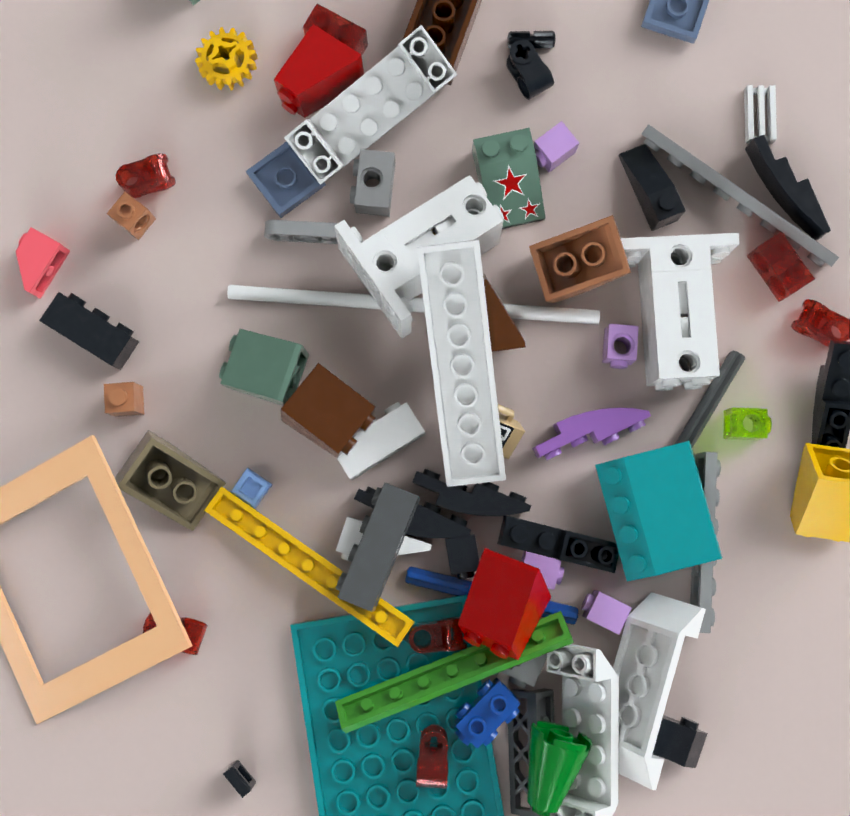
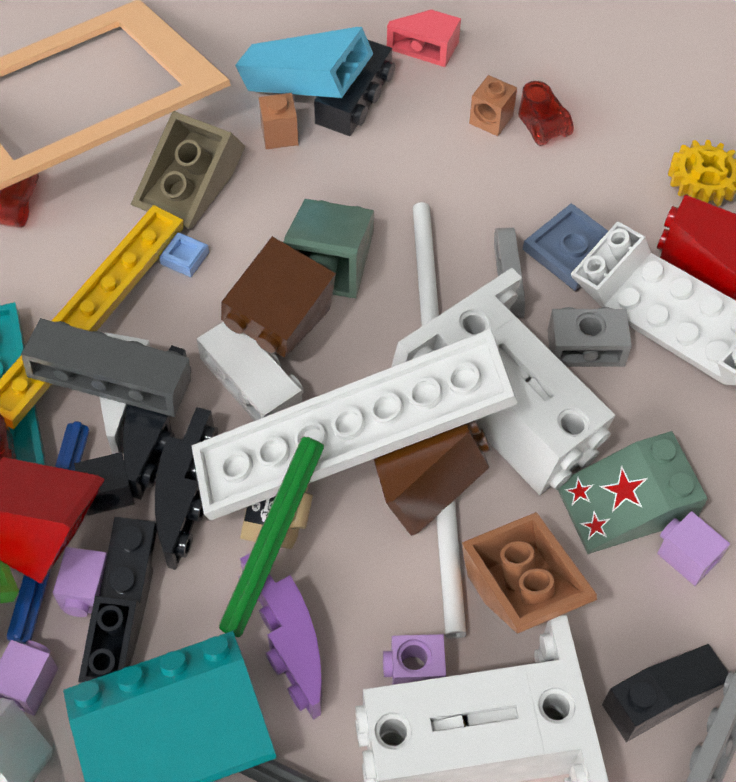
camera: 80 degrees right, 25 degrees down
(71, 368) = (306, 64): none -> medium azure slope
(535, 429) = (271, 536): none -> green axle

